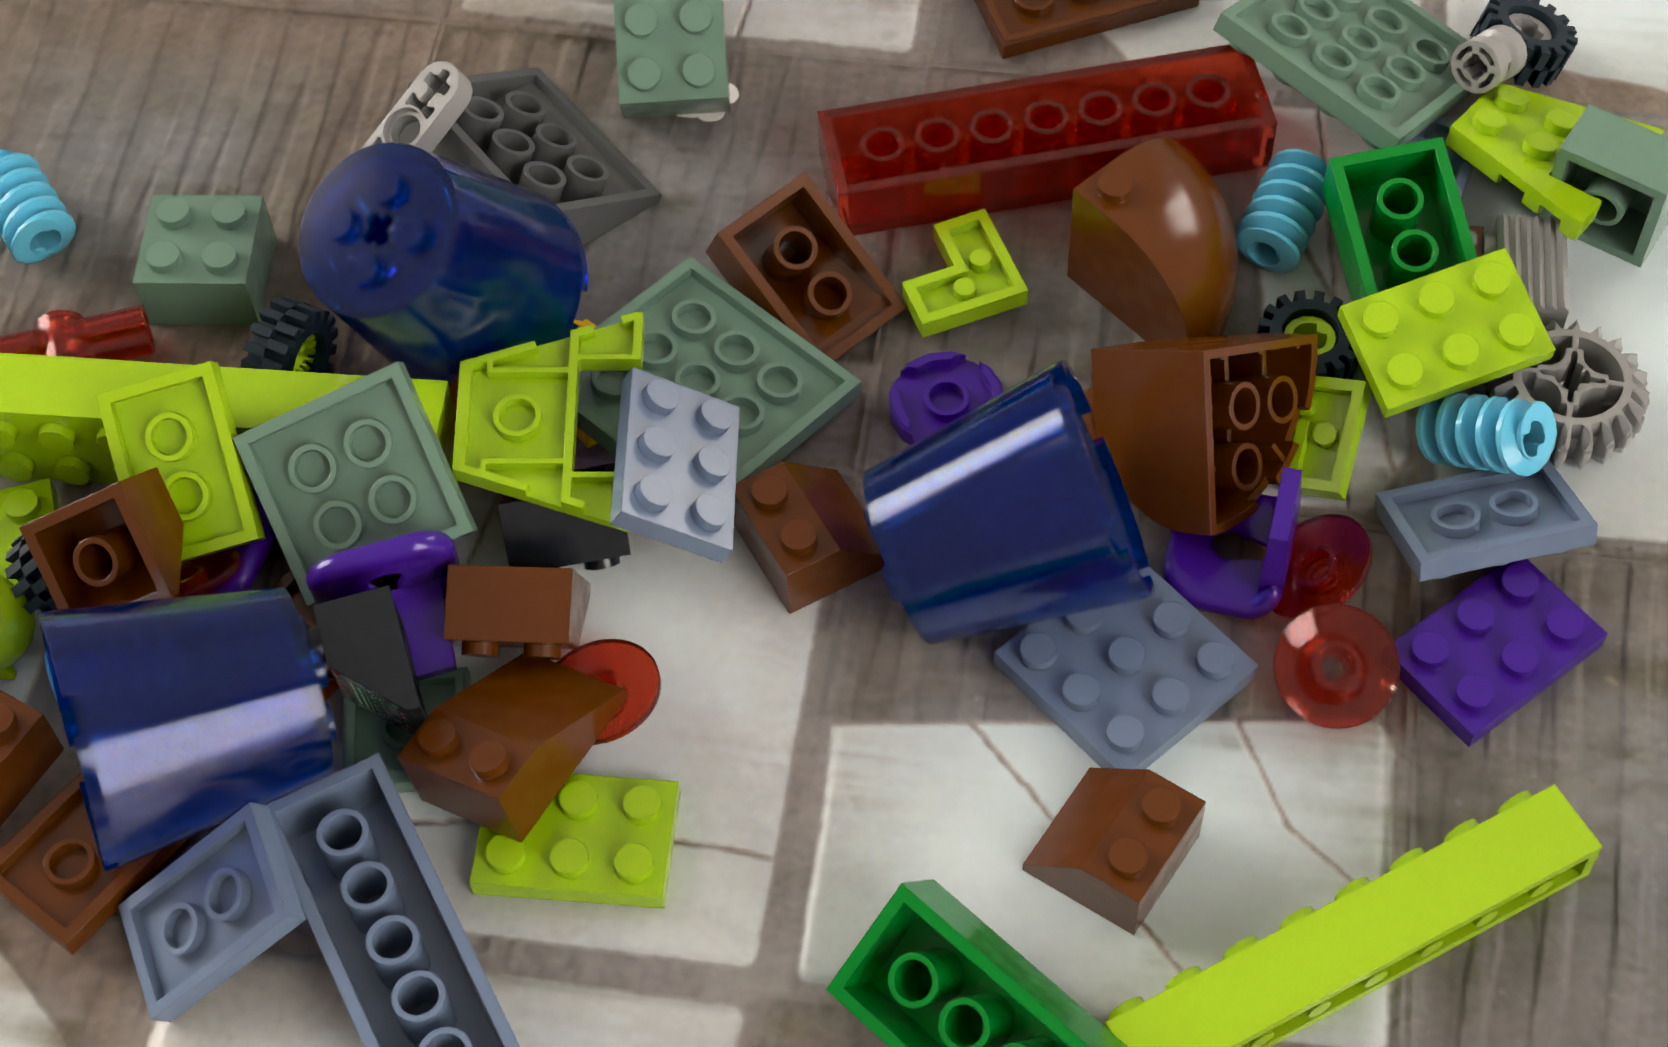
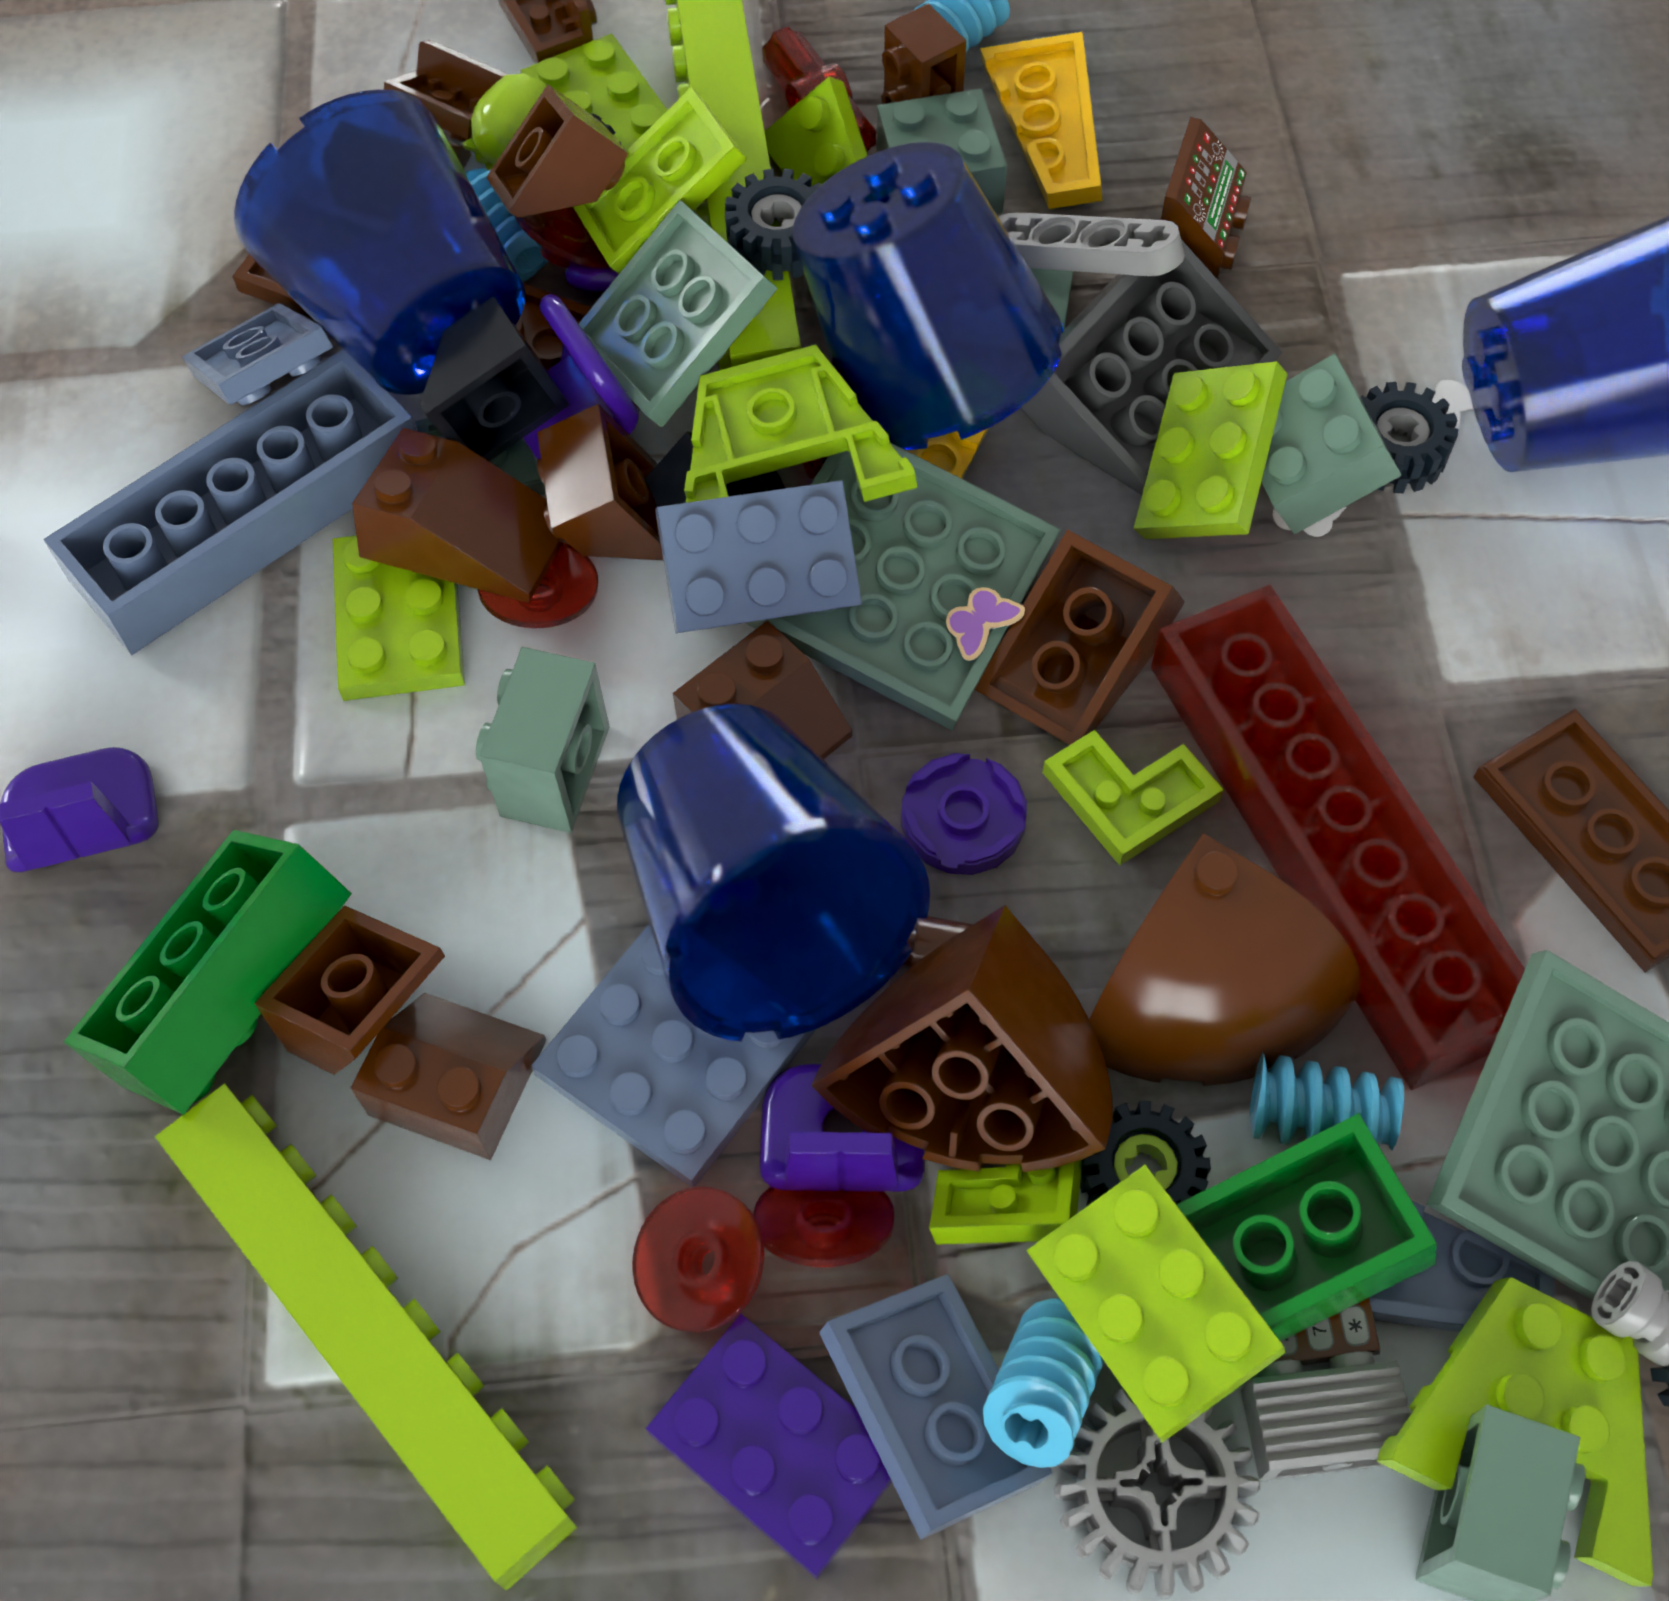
camera: 75 degrees right, 5 degrees up
(98, 237) = (922, 57): none -> reddish brown brick
(147, 156) = (1050, 112): none -> yellow wing
(169, 333) = (817, 134): none -> lime wing
(271, 353) = (755, 208): none -> black bush
(357, 71) = (1207, 197): none -> reddish brown slope
(653, 126) = (1211, 452): none -> lime plate
(768, 338) = (972, 622): none -> medium lavender sticker
(801, 695) = (544, 738): none -> sand green brick
(1043, 886) = (345, 988): none -> reddish brown slope

